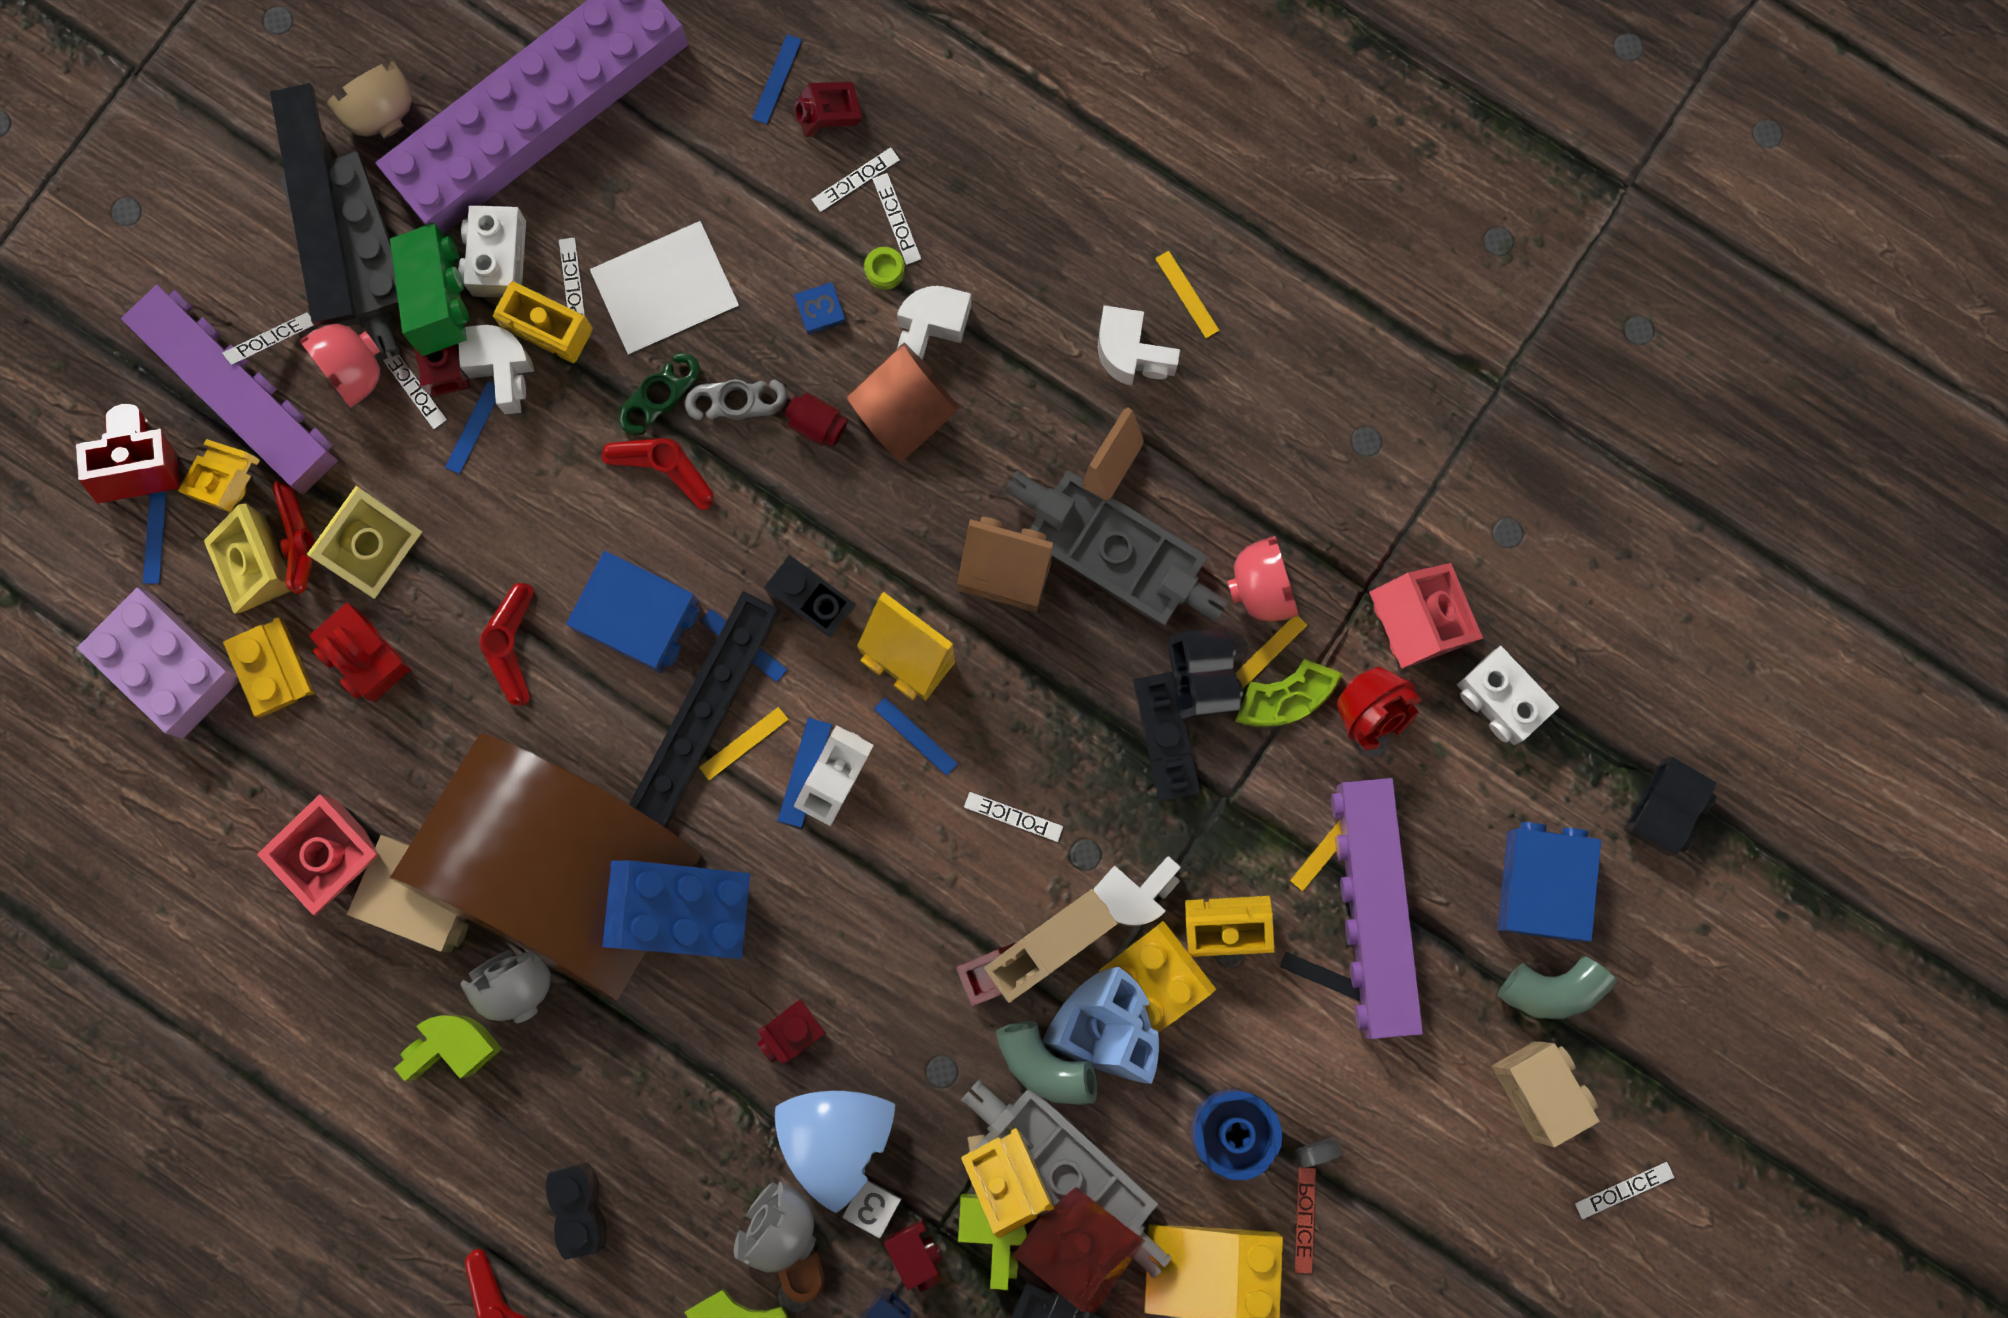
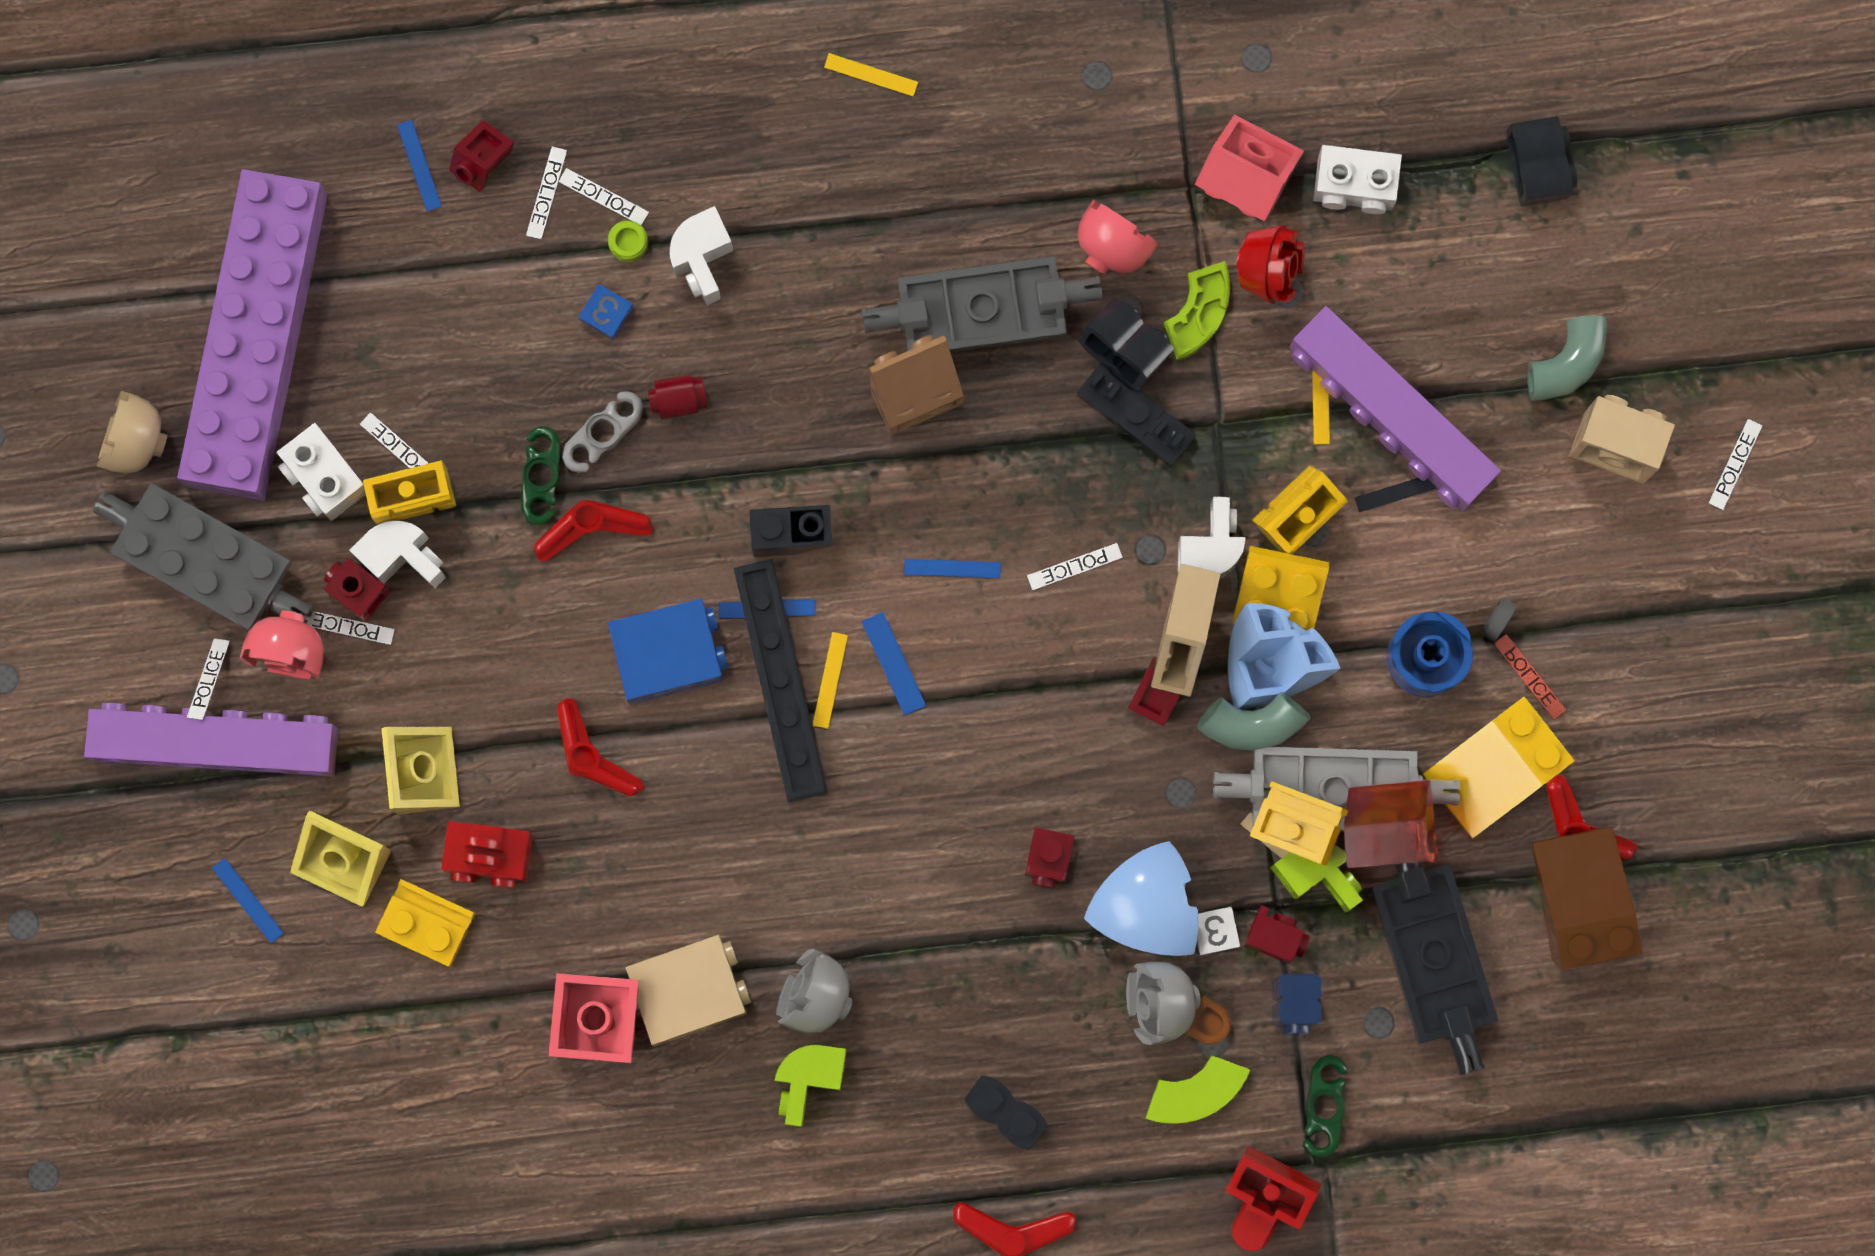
camera: 40 degrees left, 0 degrees up
(127, 459) = (182, 857): red brick -> none
(159, 663) = (343, 986): lavender brick -> none
(218, 476) = (264, 811): yellow plate -> none
(298, 539) = (367, 813): red piece -> none
(312, 205) = (157, 548): black tile -> none
(429, 289) = (303, 538): green brick -> none
(472, 429) = (420, 617): blue sticker -> none
(533, 857) = (766, 882): reddish brown slope -> none
(664, 287) = (472, 393): white sticker -> none
(676, 909) = (892, 834): blue brick -> none
(833, 775) = (920, 643): white brick -> none
(902, 402) = (732, 329): copper slope -> none
(905, 649) = (895, 506): yellow slope -> none
(1114, 456) = (923, 239): medium nougat slope -> none
(1122, 352) = (859, 155): white brick -> none
(1270, 650) = (1157, 287): yellow sticker -> none
(1549, 883) = (1500, 288): blue brick -> none

